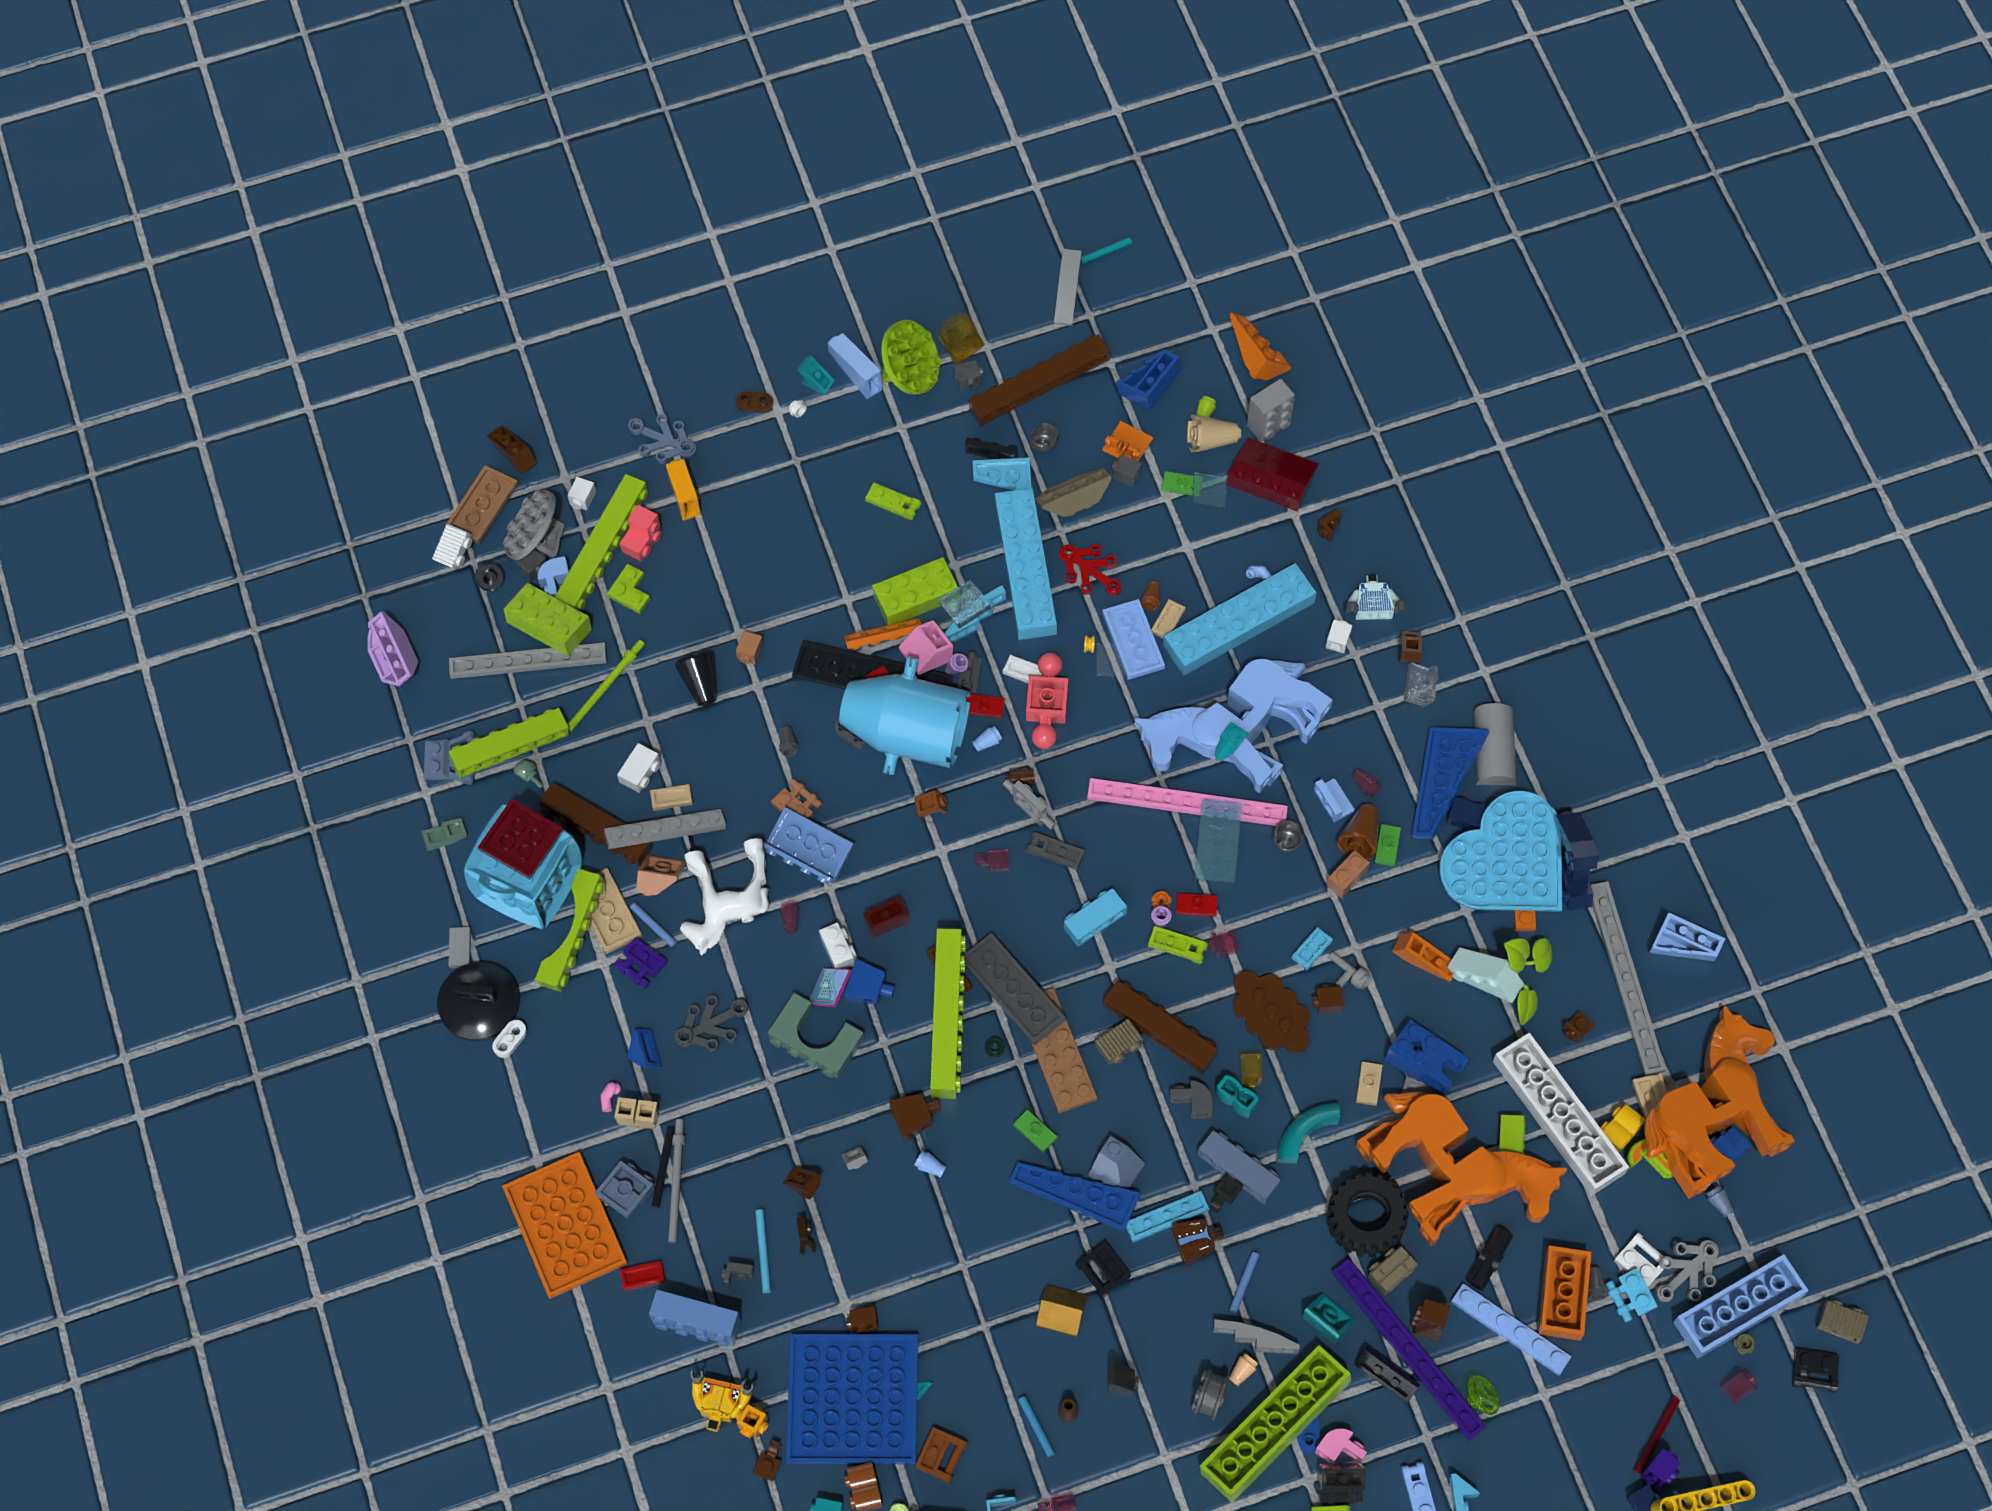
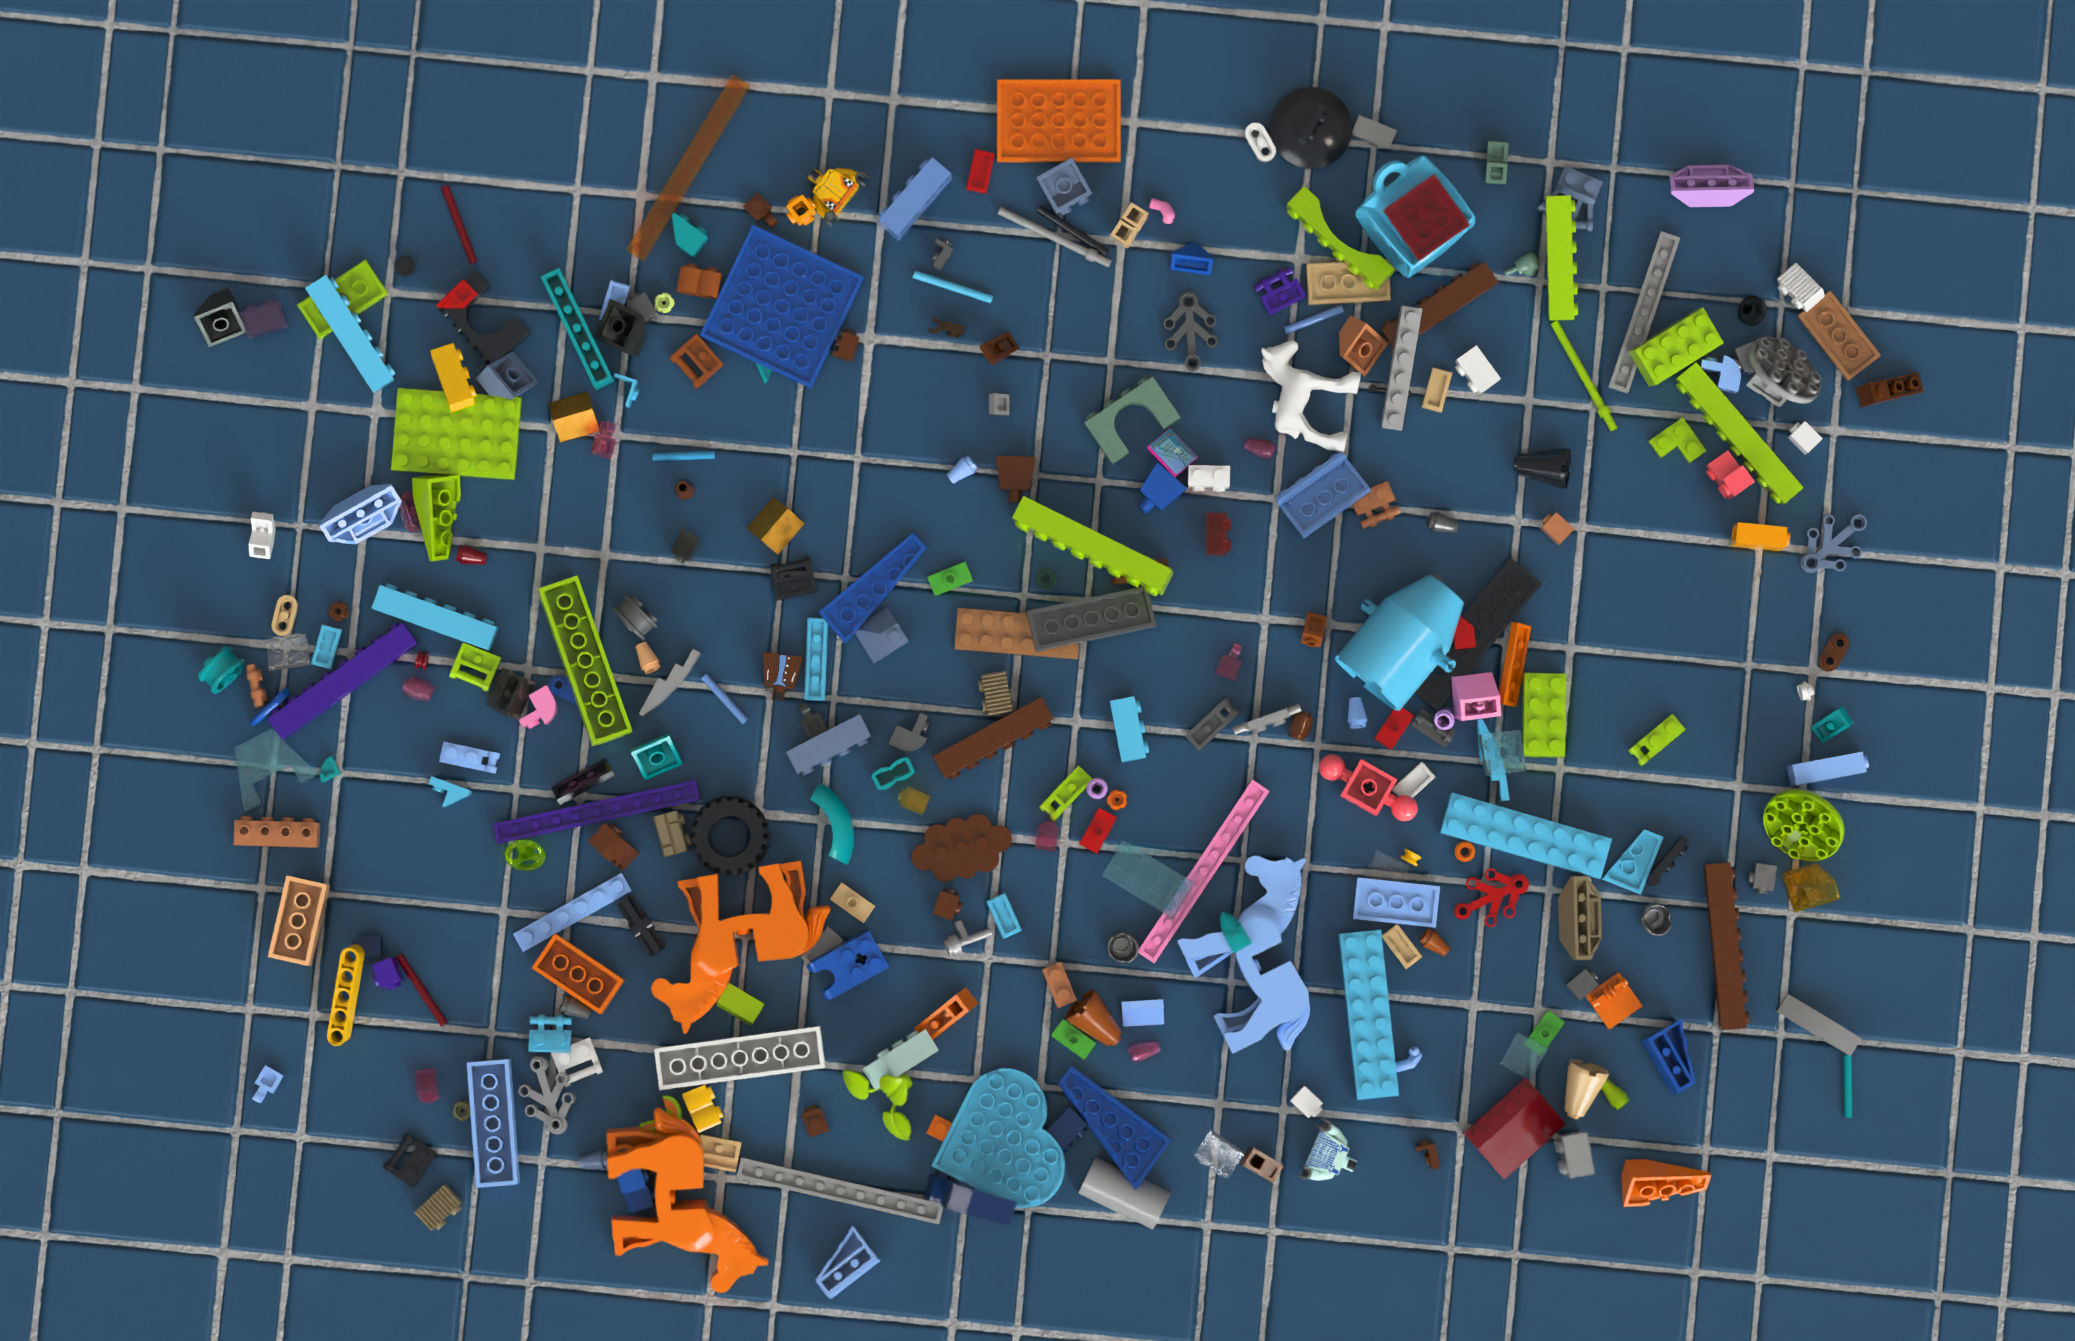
camera: 115 degrees right, 20 degrees up
(1062, 601) = (1471, 851): none -> orange plate

